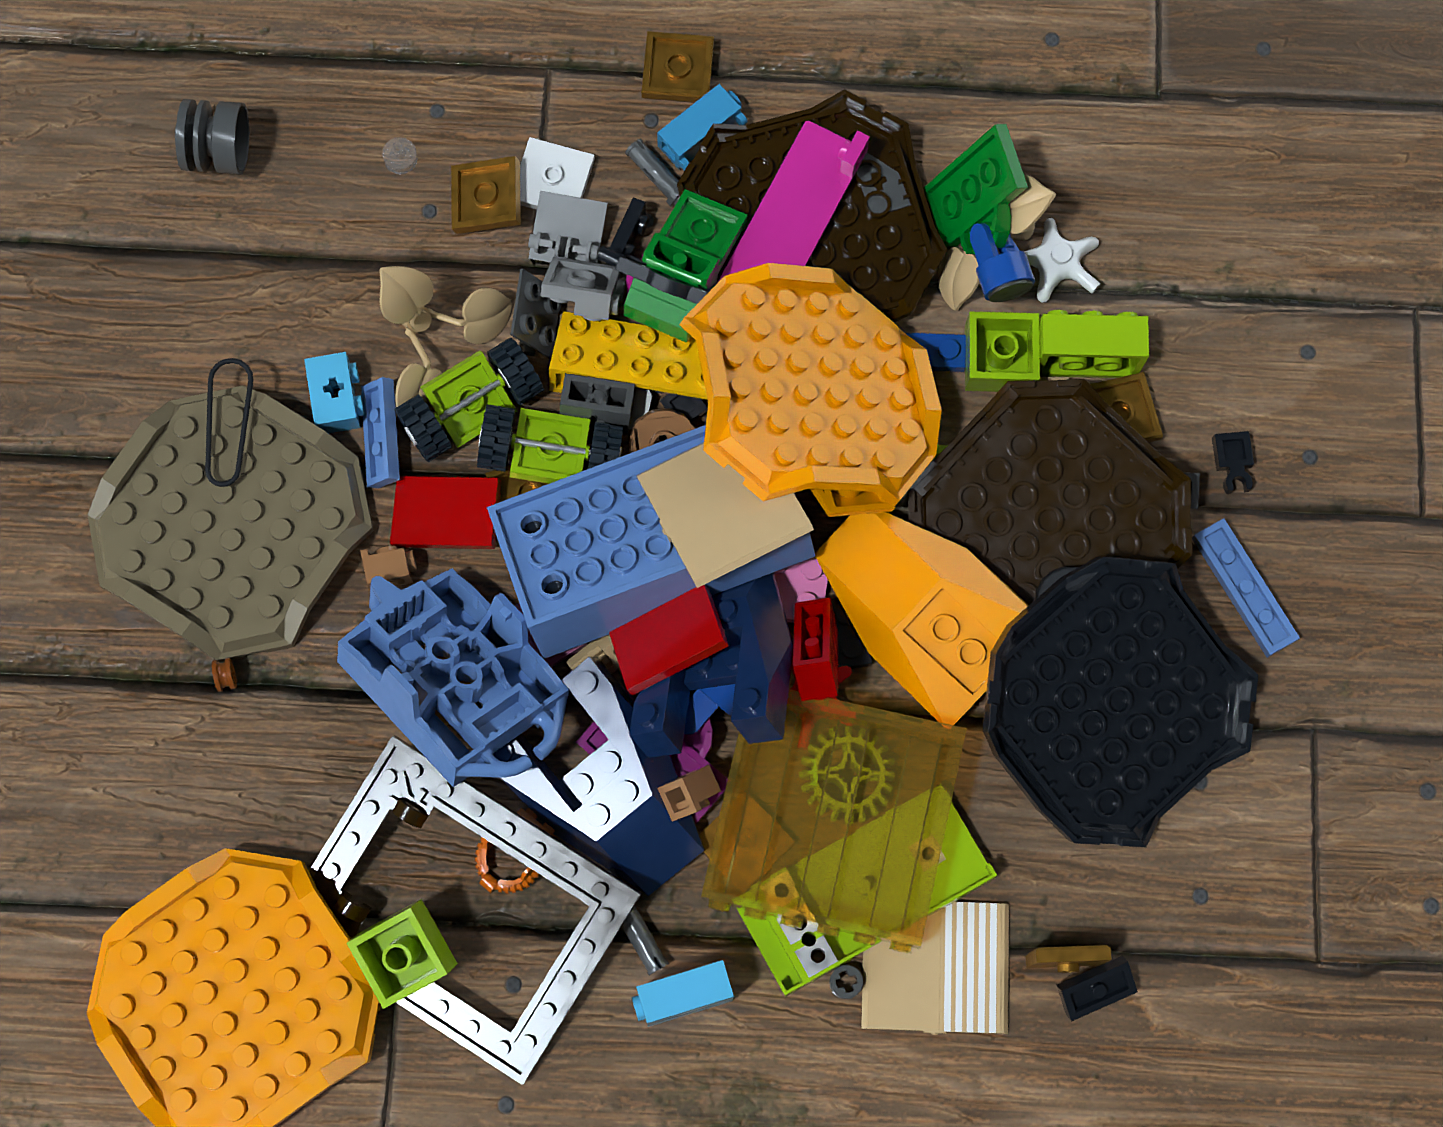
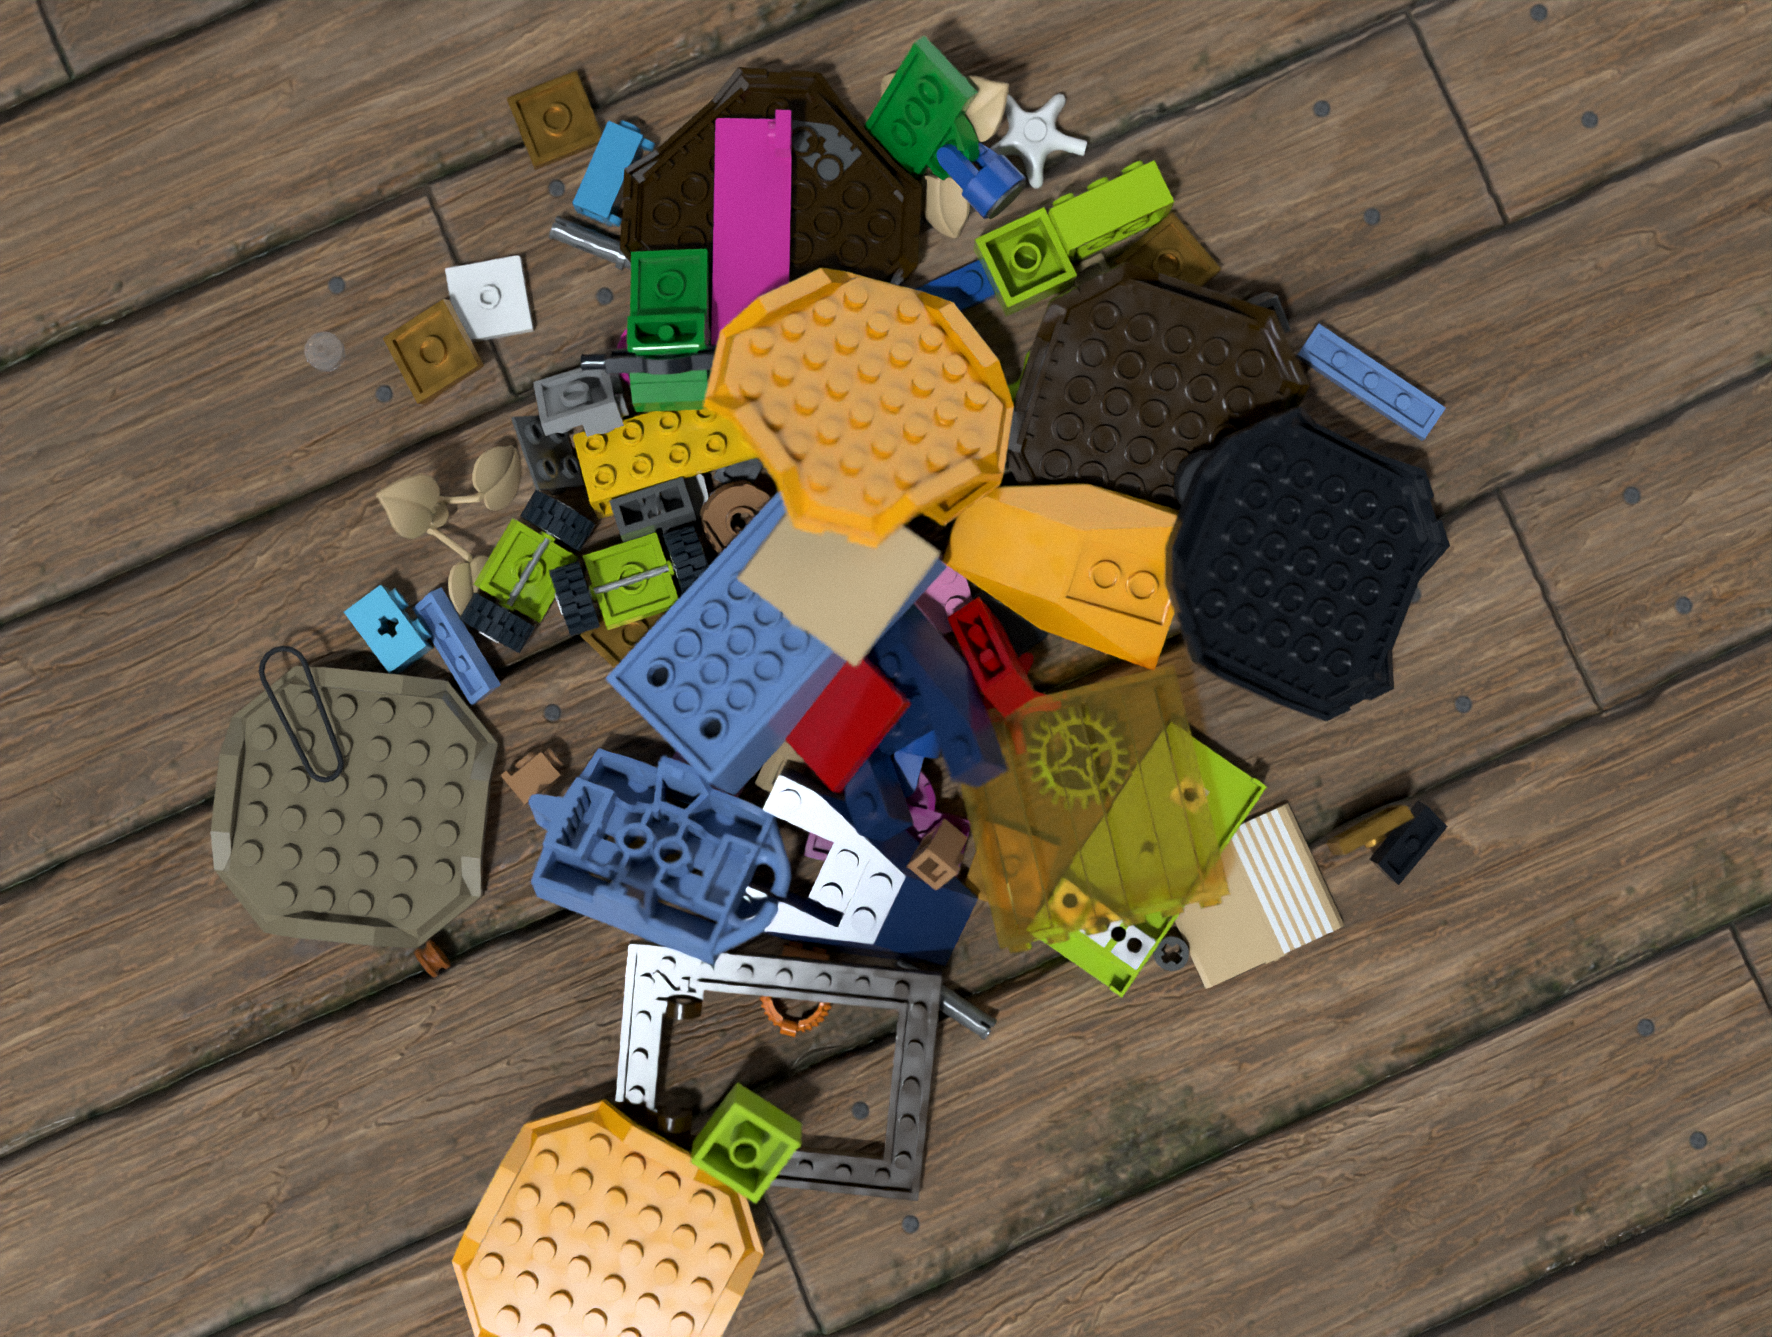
camera: 20 degrees left, 10 degrees up
(206, 136) = (122, 432): dark grey wheel -> none
(444, 512) = (561, 694): red tile -> none
(567, 228) = (532, 346): light grey hinge -> none
(633, 223) = (595, 308): black plate -> none
(683, 994) = (1026, 1045): medium azure brick -> none
(1235, 455) = (1298, 253): black plate -> none

